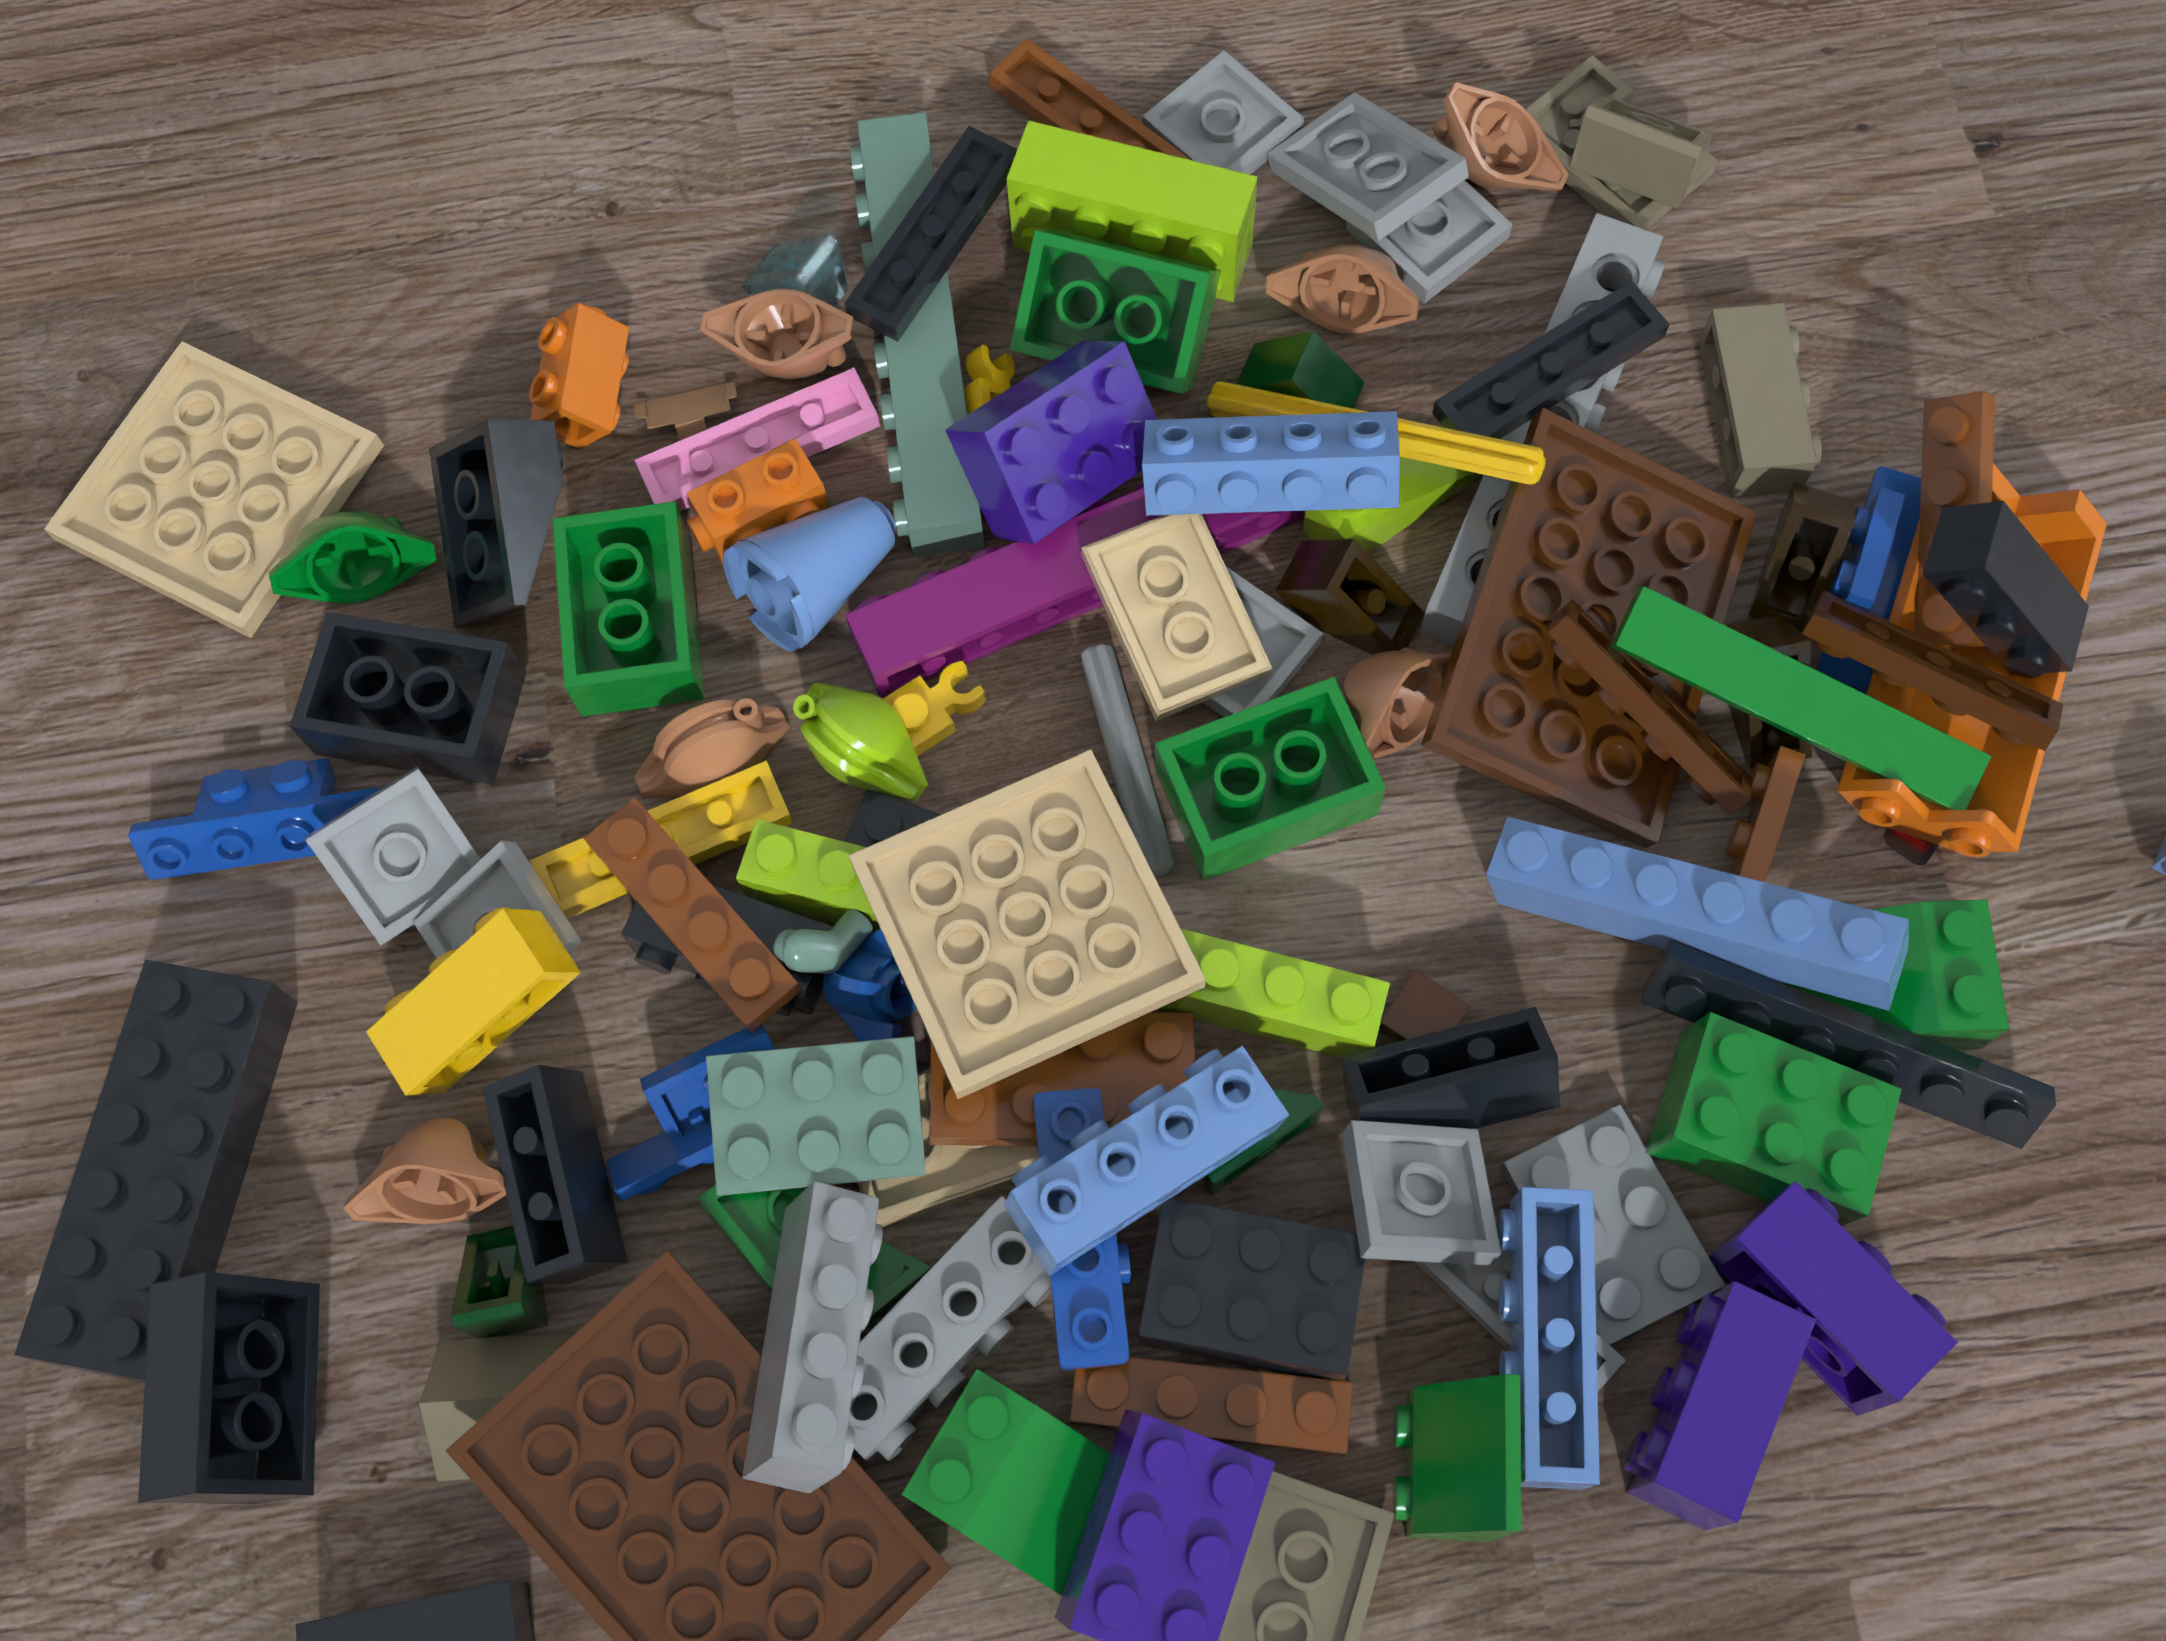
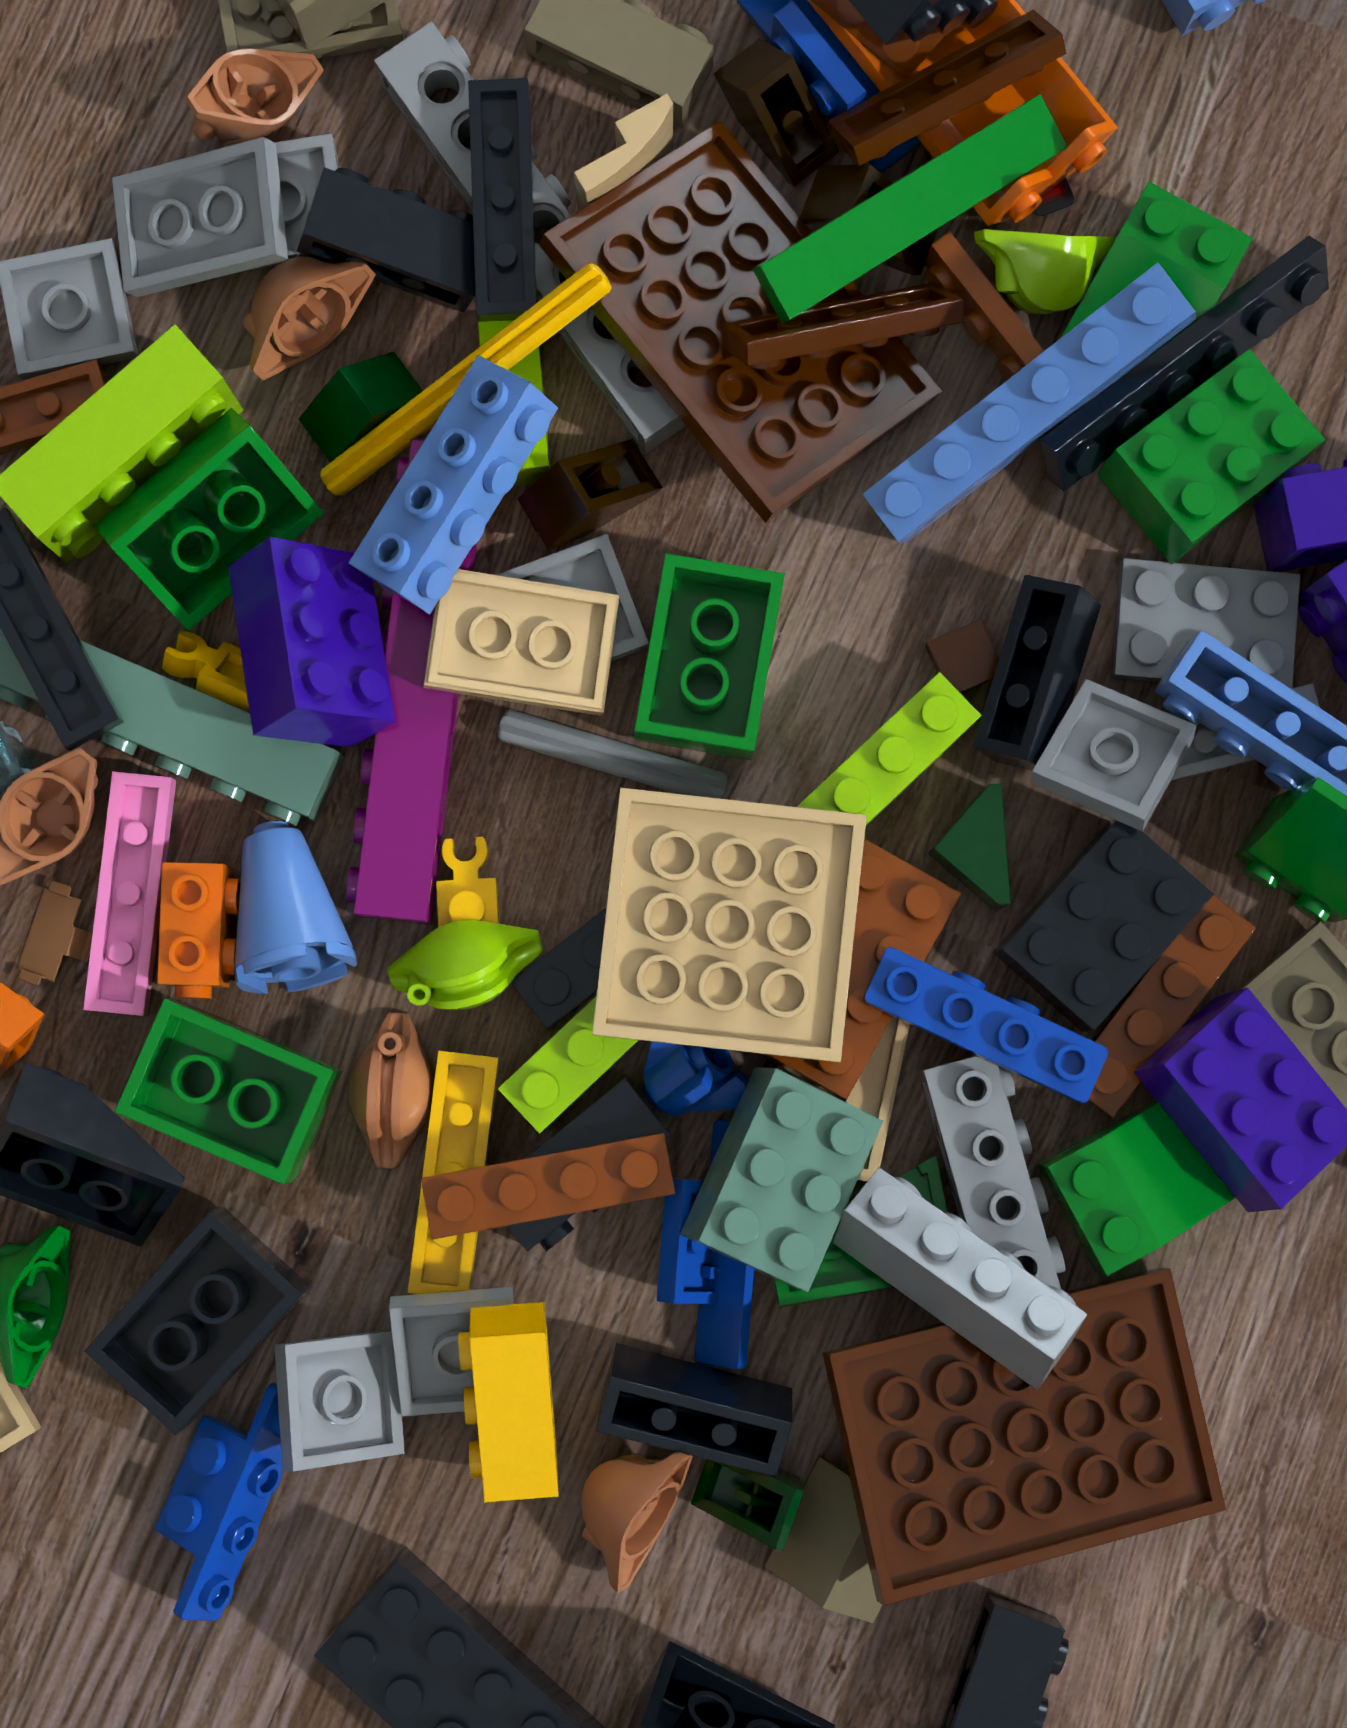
camera: 65 degrees left, 15 degrees up
(822, 950) = (645, 1098): sand green arm -> none
(1143, 1159) = (976, 946): medium blue brick -> none
(1394, 697) = (695, 510): nougat hat -> none
(1458, 308) = (393, 235): none -> black brick
(1689, 446) = (640, 142): none -> tan slope
(1835, 856) = (1041, 269): none -> lime hat

